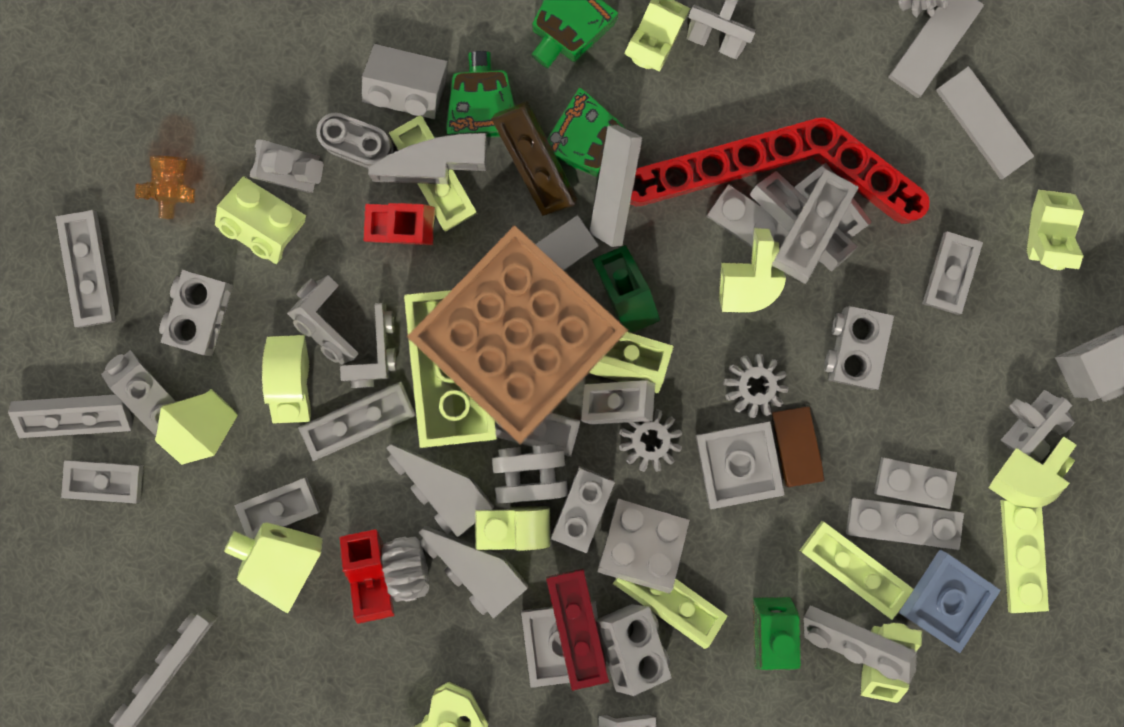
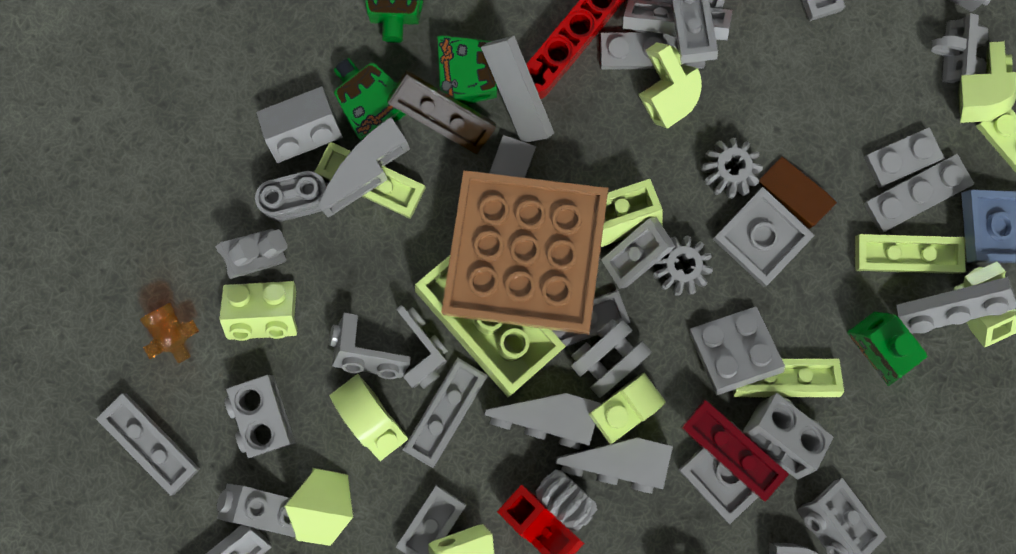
camera: 35 degrees left, 5 degrees down
(399, 223) = (372, 234): red brick -> none
(582, 509) = (670, 355): light grey brick -> none
(626, 289) = (581, 162): dark green slope -> none
(869, 351) = (798, 83): light grey brick -> none

